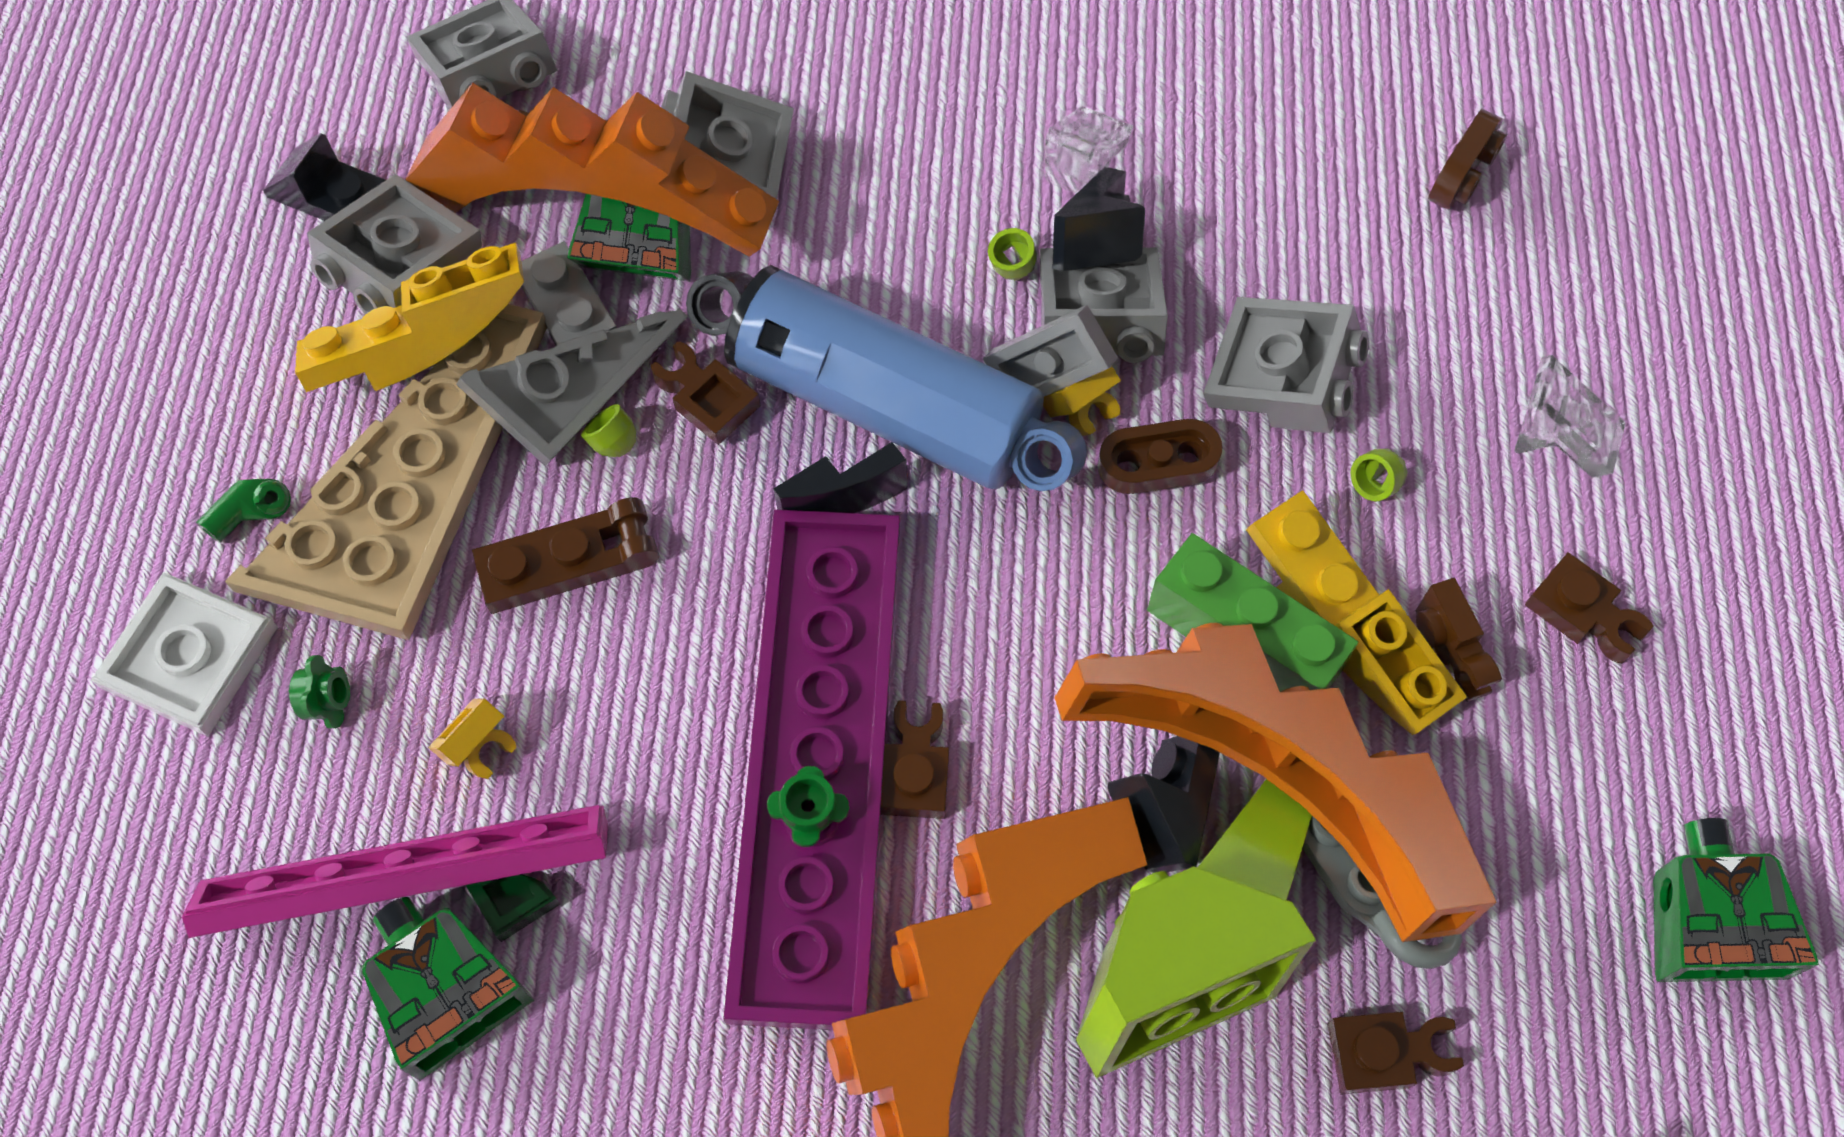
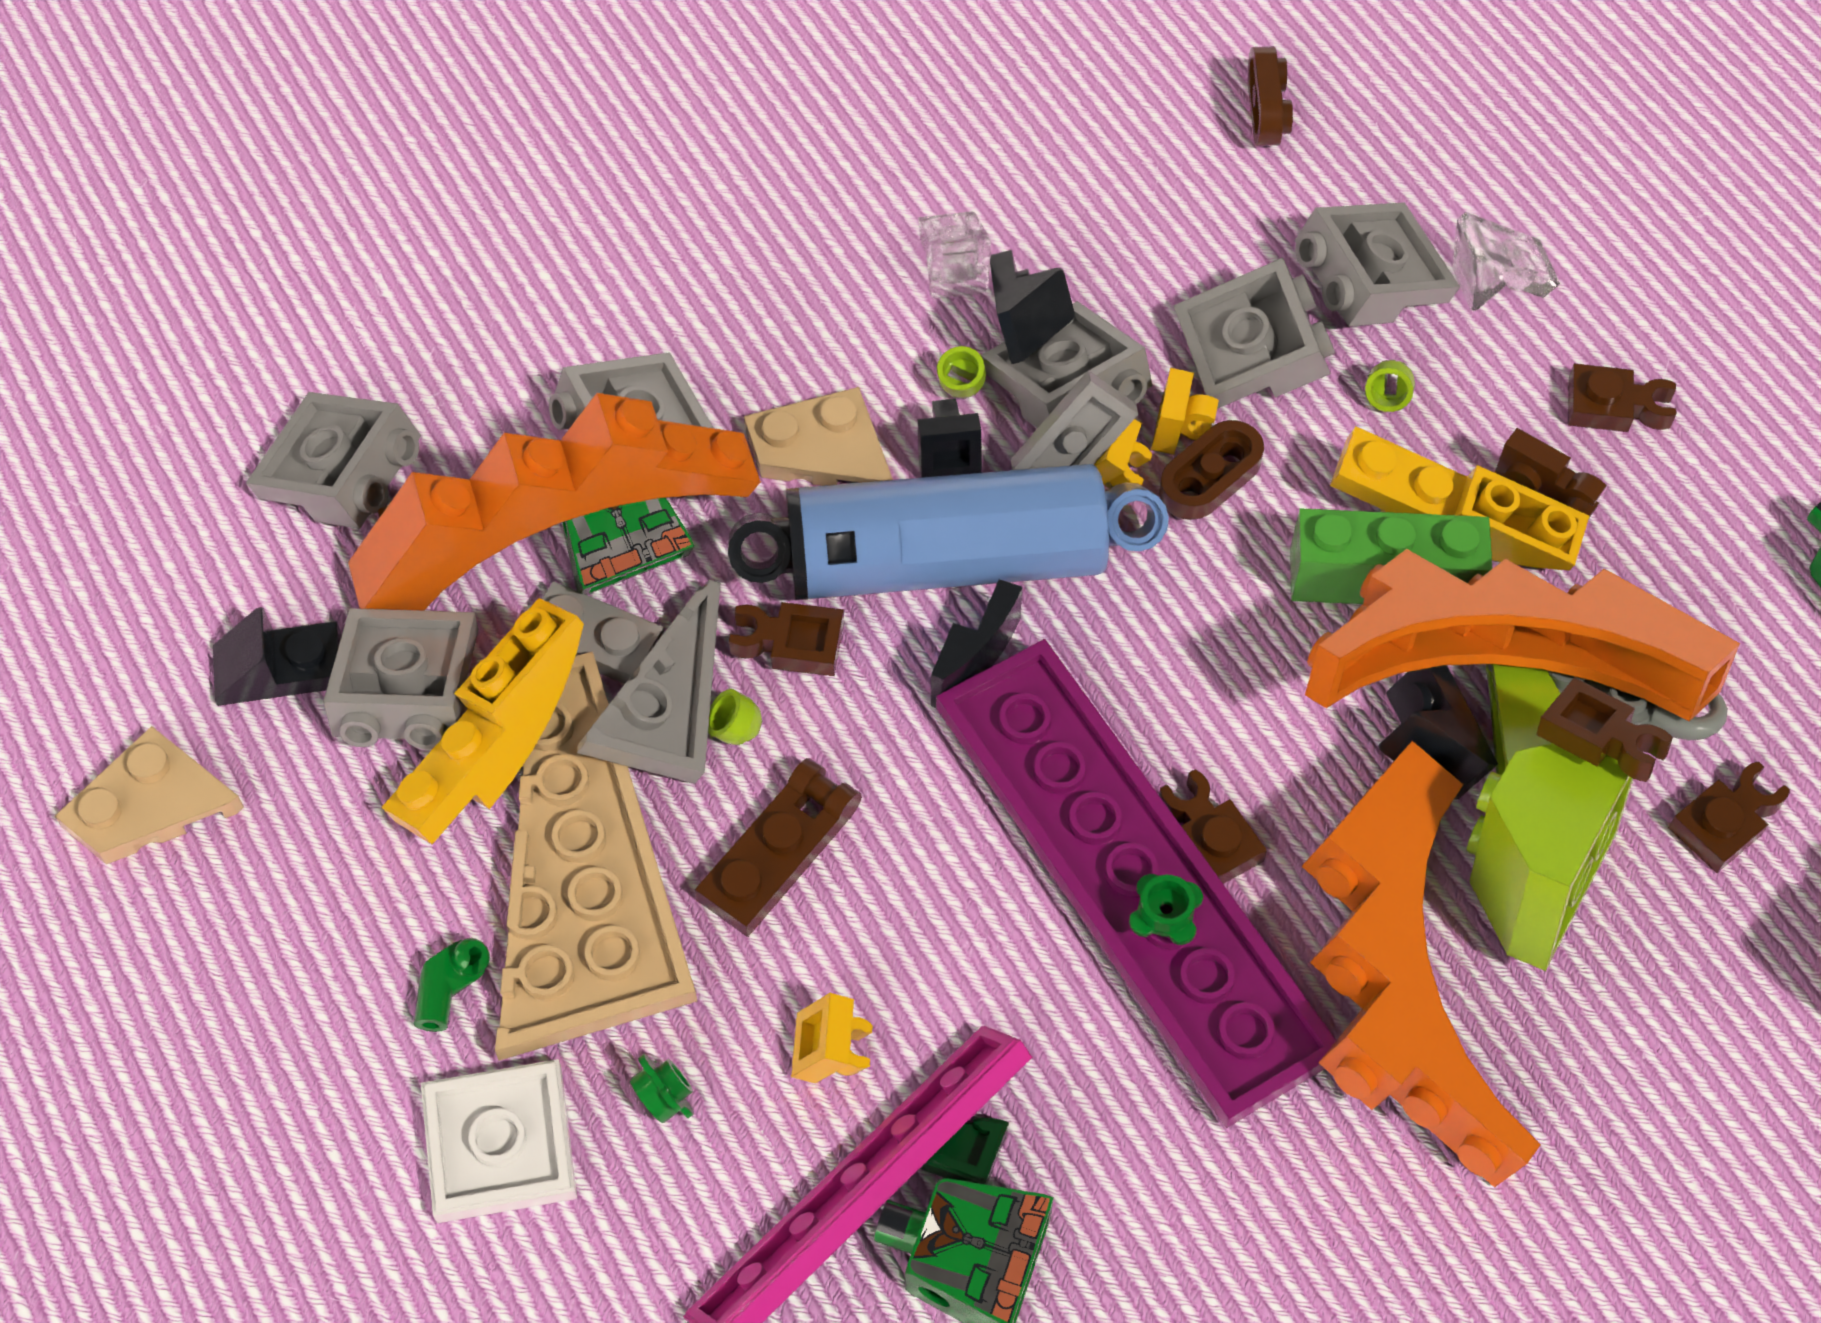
camera: 35 degrees left, 5 degrees down
(158, 236) = (144, 799): none -> tan wing
(859, 247) = (818, 441): none -> tan wing
(954, 305) = (949, 441): none -> black tile
(1168, 390) = (1182, 412): none -> yellow tile
(1280, 891) = (1601, 725): none -> reddish brown plate
(1448, 356) = (1373, 262): none -> light grey plate

